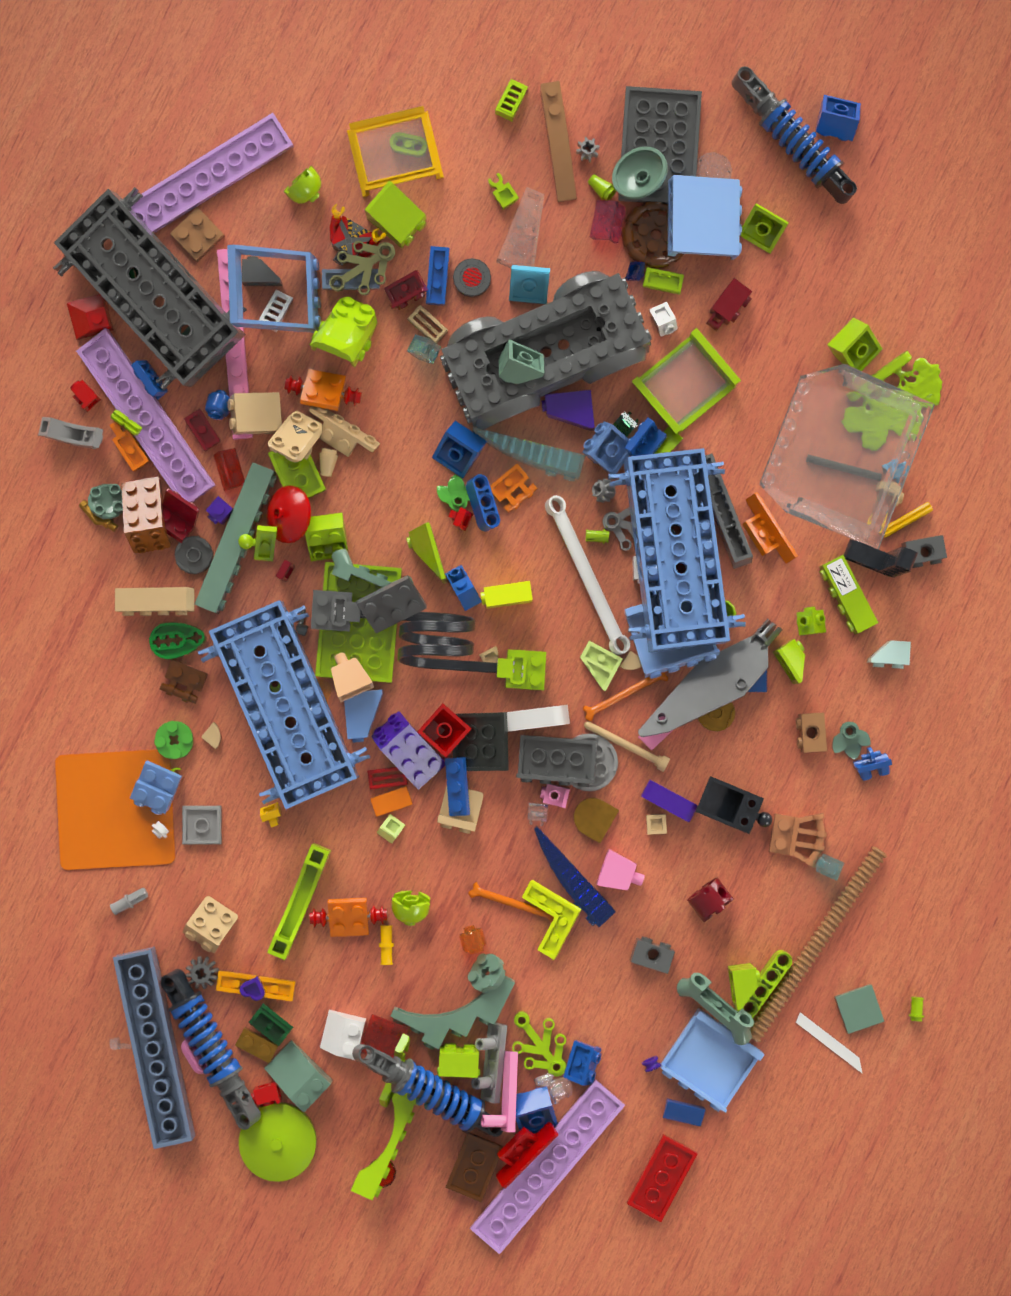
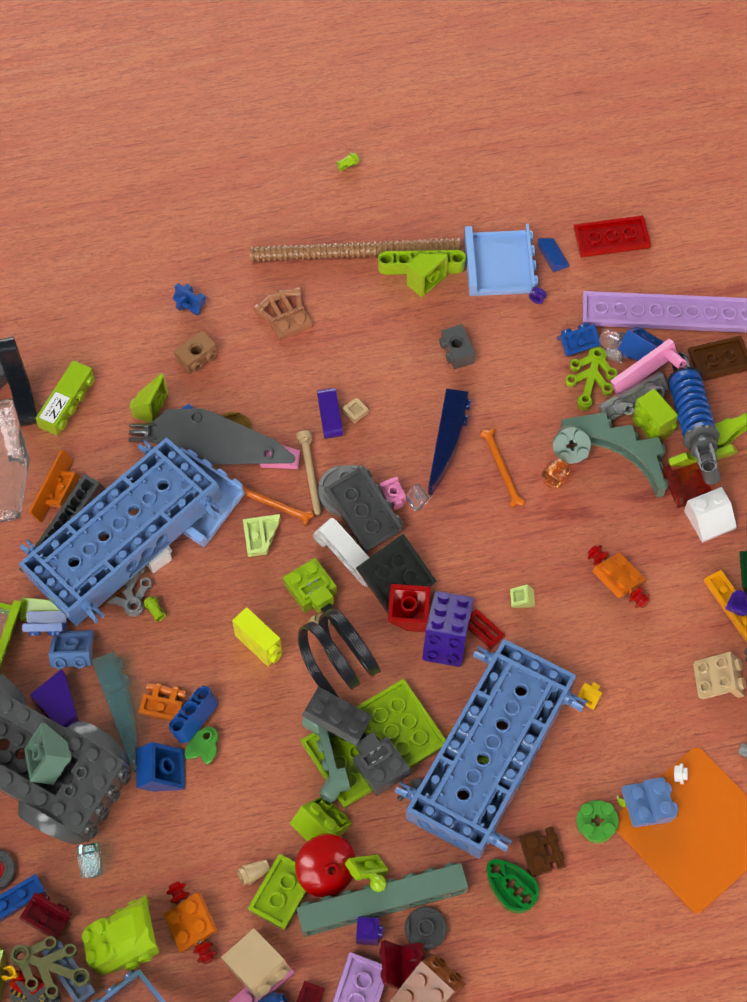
camera: 125 degrees left, 25 degrees down
(154, 600) = (492, 925): tan brick -> none
(201, 824) = (646, 746): light grey tile -> none
(212, 735) = (566, 792): tan tile -> none
(229, 469) = (325, 956): clear red slope -> none
(285, 571) = (377, 830): dark red tile -> none
(296, 437) = (251, 908): tan shield -> none
(299, 901) = (608, 628): lime arch -> none
(342, 434) = (219, 877): tan bracket -> none
(349, 677) = (426, 708): light nougat torso -> none
(360, 714) = (447, 685): medium blue slope -> none
(386, 945) = (615, 533): yellow pin -> none
(391, 801) = (500, 612): orange tile -> none
(410, 908) = (570, 534): lime cylinder -> none
(422, 330) = (62, 896): tan tile -> none
(424, 545) = (265, 724): lime slope -> none
(457, 786) = (446, 566): blue plate -> none
(461, 518) = (220, 723): red tile -> none
(463, 587) = (278, 680): blue slope -> none
(465, 823) = (463, 554): tan bracket -> none
(522, 1151) = (679, 330): red bracket -> none
(562, 911) = (478, 425): neon yellow plate -> none
(587, 575) = (192, 594): white piece -> none
(594, 818) = (387, 456): pearl gold tile -> none
(603, 491) = (116, 629): light grey gear -> none
(618, 872) = (415, 411): bright pink torso -> none
(626, 424) = (40, 650): tile -> none
(631, 662) = (240, 513): tan tile -> none
(710, 899) = (381, 333): dark red brick -> none
(730, 804) = (297, 365): black slope -> none
(737, 1022) = (455, 296): sand green plate -> none
(811, 621) = (107, 407): lime brick -> none
(829, 866) = (290, 275): clear light blue brick -> none
(829, 1041) = (419, 200): white sticker -> none
(850, 743) = (182, 324): sand green plate -> none
(859, 1008) = (379, 196): sand green tile -> none
(892, 653) = (90, 340): light aqua slope -> none

